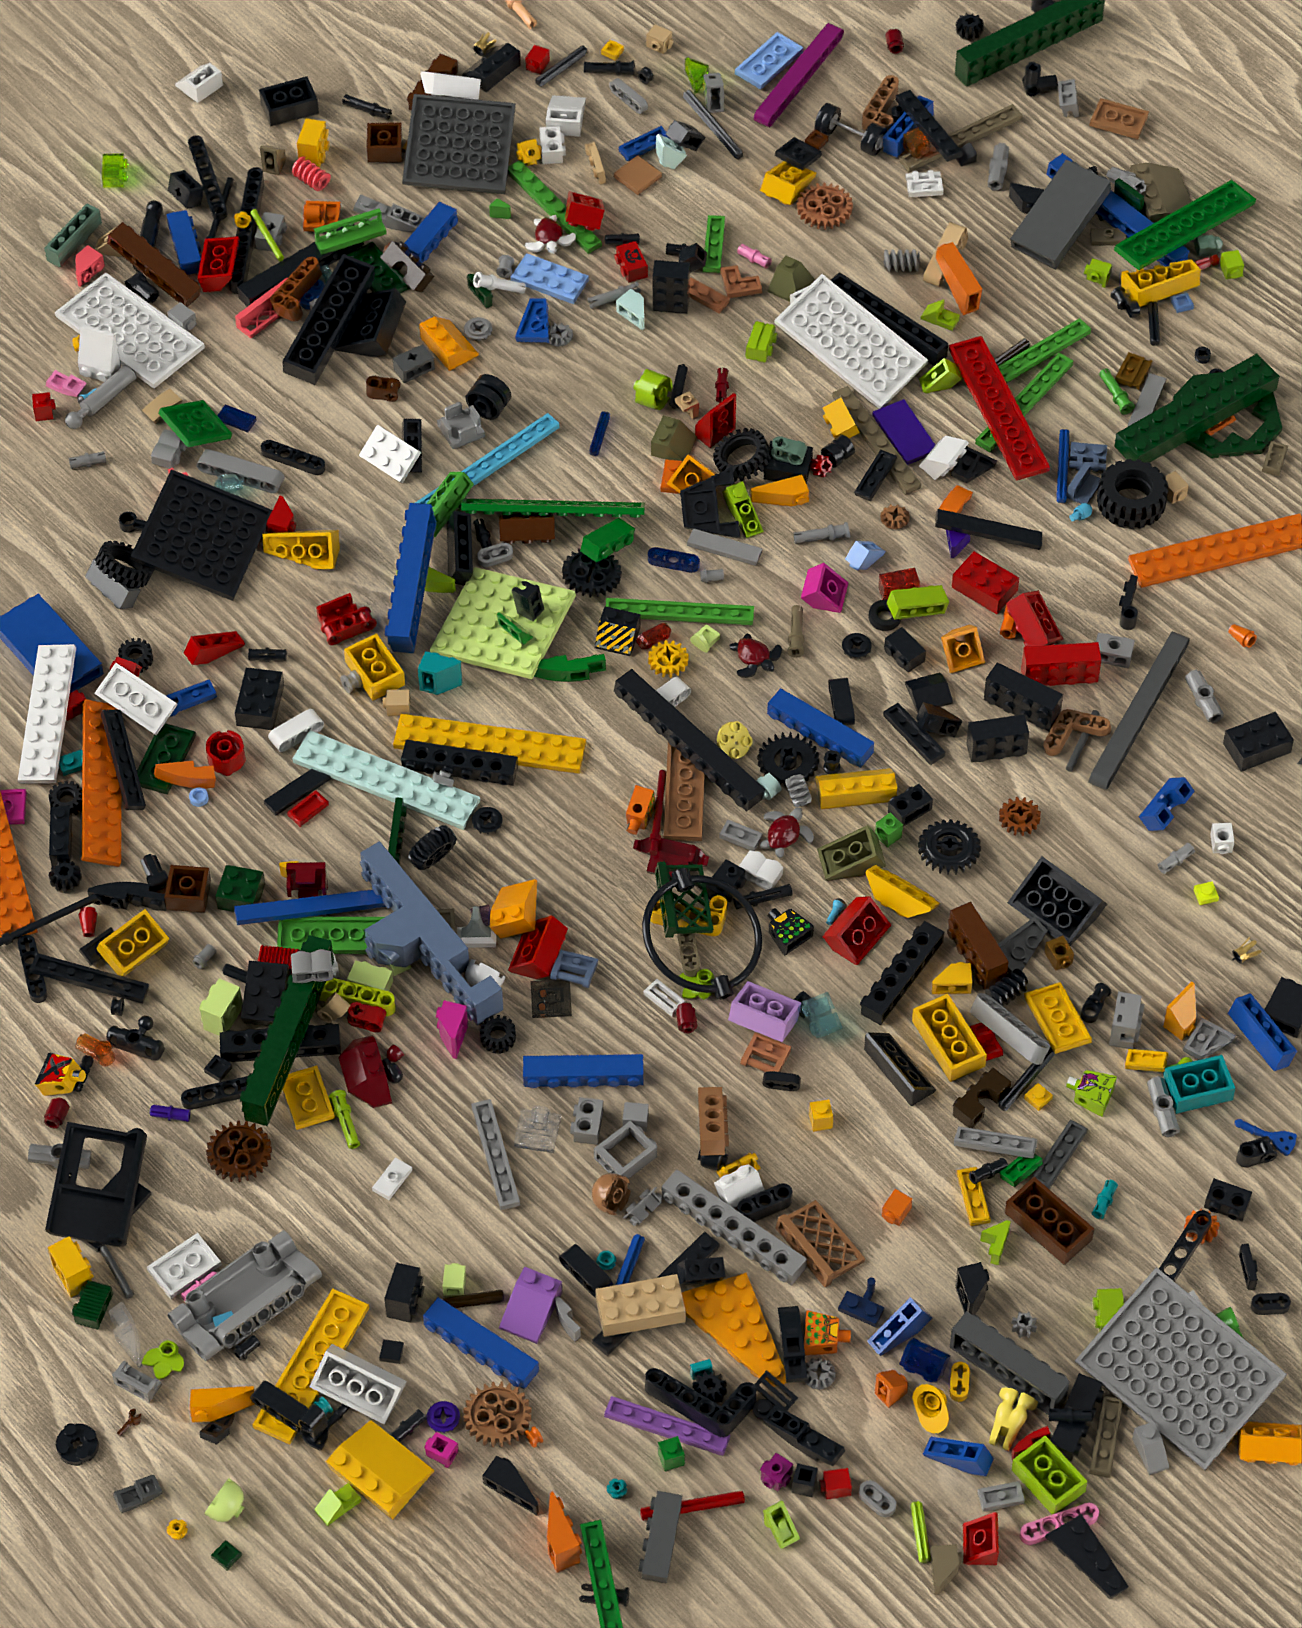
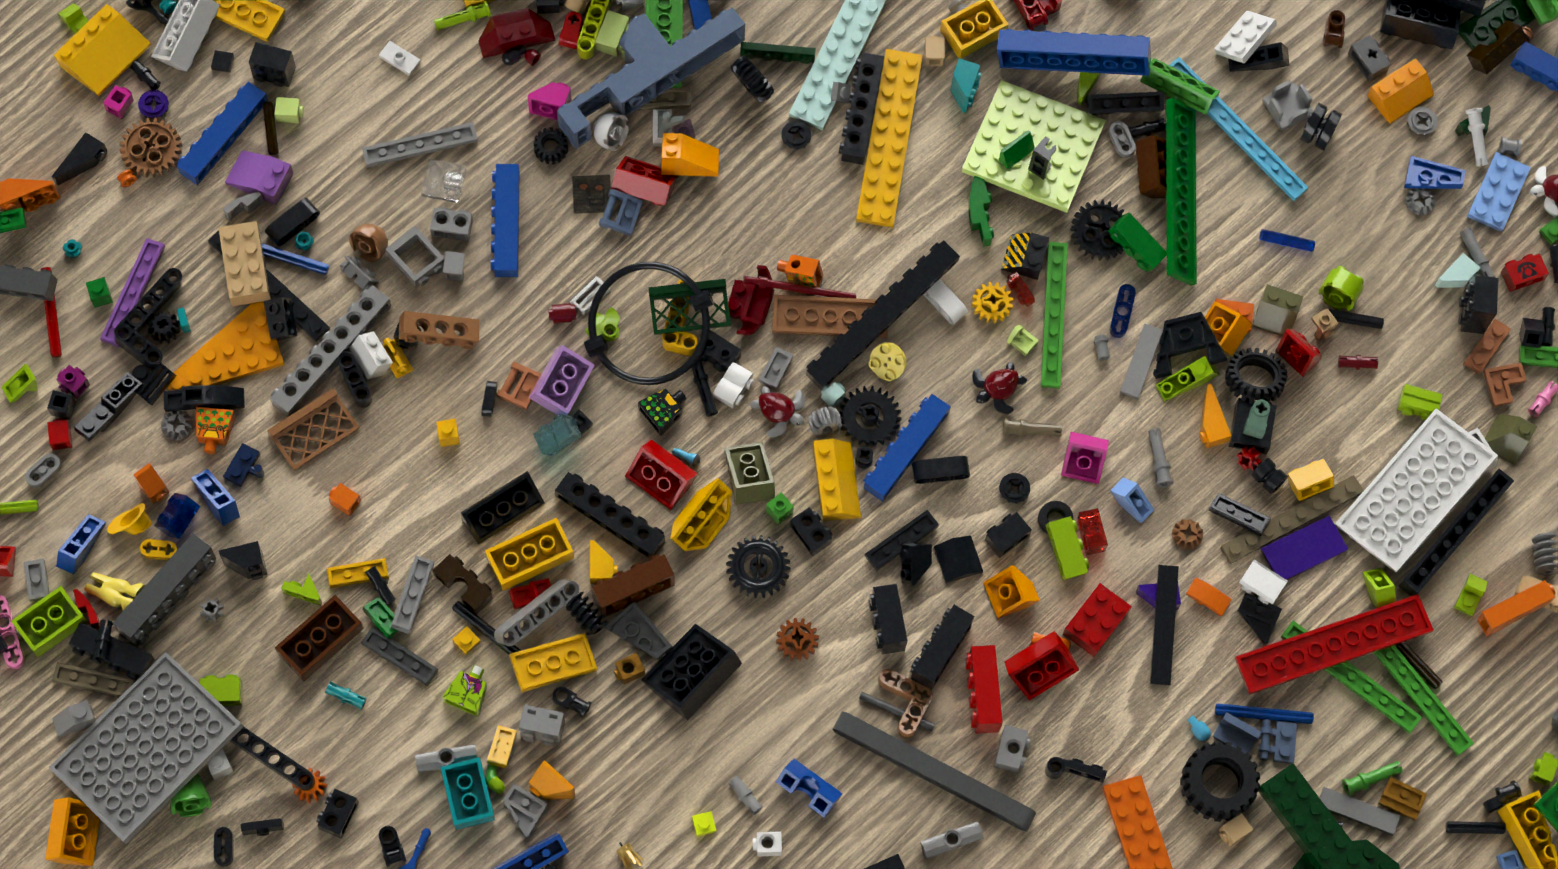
camera: 85 degrees right, 15 degrees up
(685, 959) = (633, 322): dark tan beam -> none

